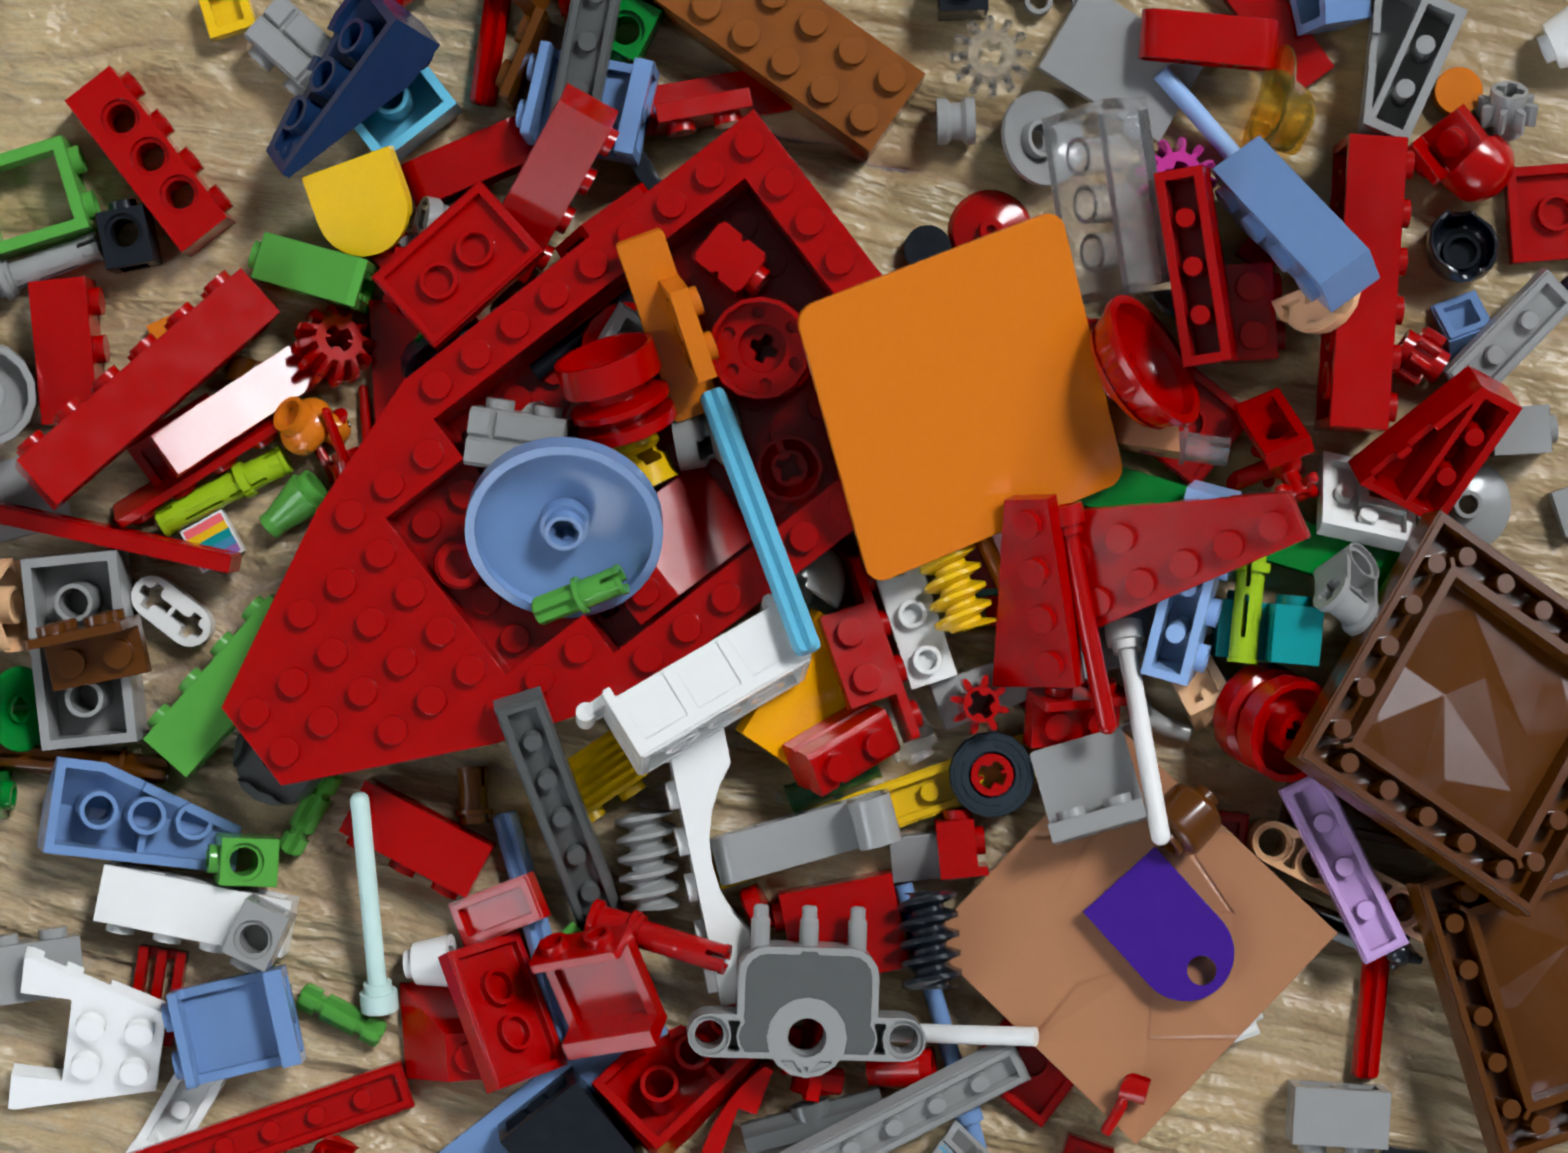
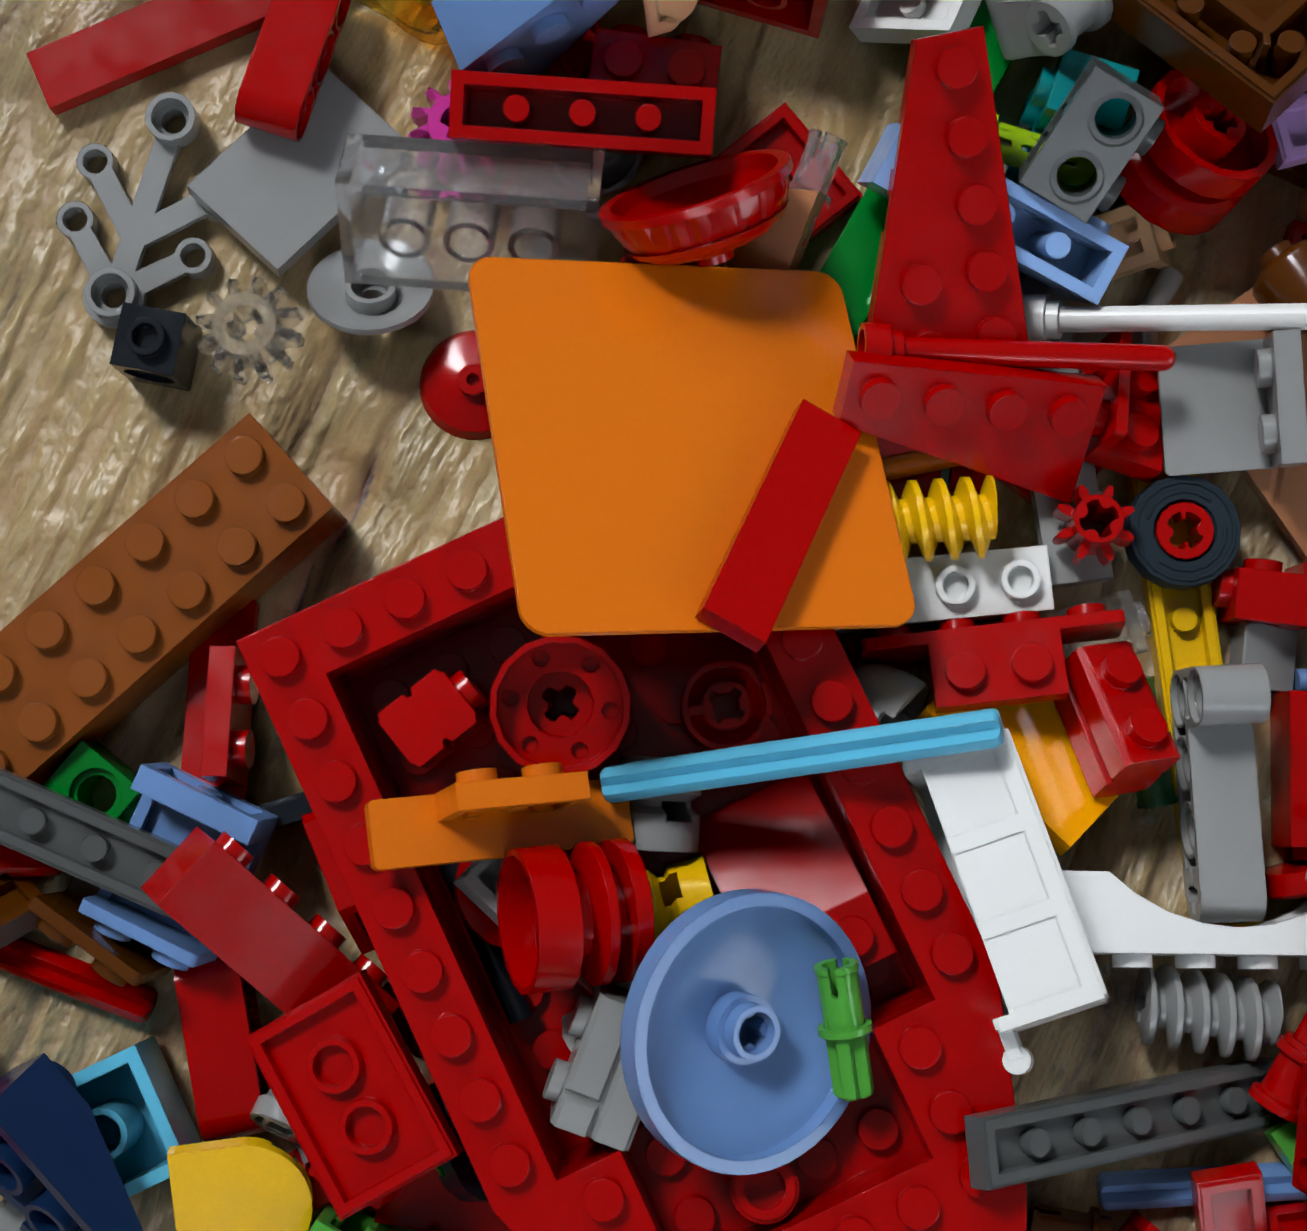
camera: 80 degrees left, 5 degrees down
(603, 773) = (1079, 1053): yellow brick -> none
(917, 471) = (778, 526): none -> red tile
(924, 243) = (473, 468): black tile -> none
(955, 121) = (322, 393): light grey wheel -> none
(1196, 112) = (386, 88): light blue bar -> none
(1256, 631) = (1077, 134): none -> dark grey brick
(1280, 442) = (834, 66): red piece -> none

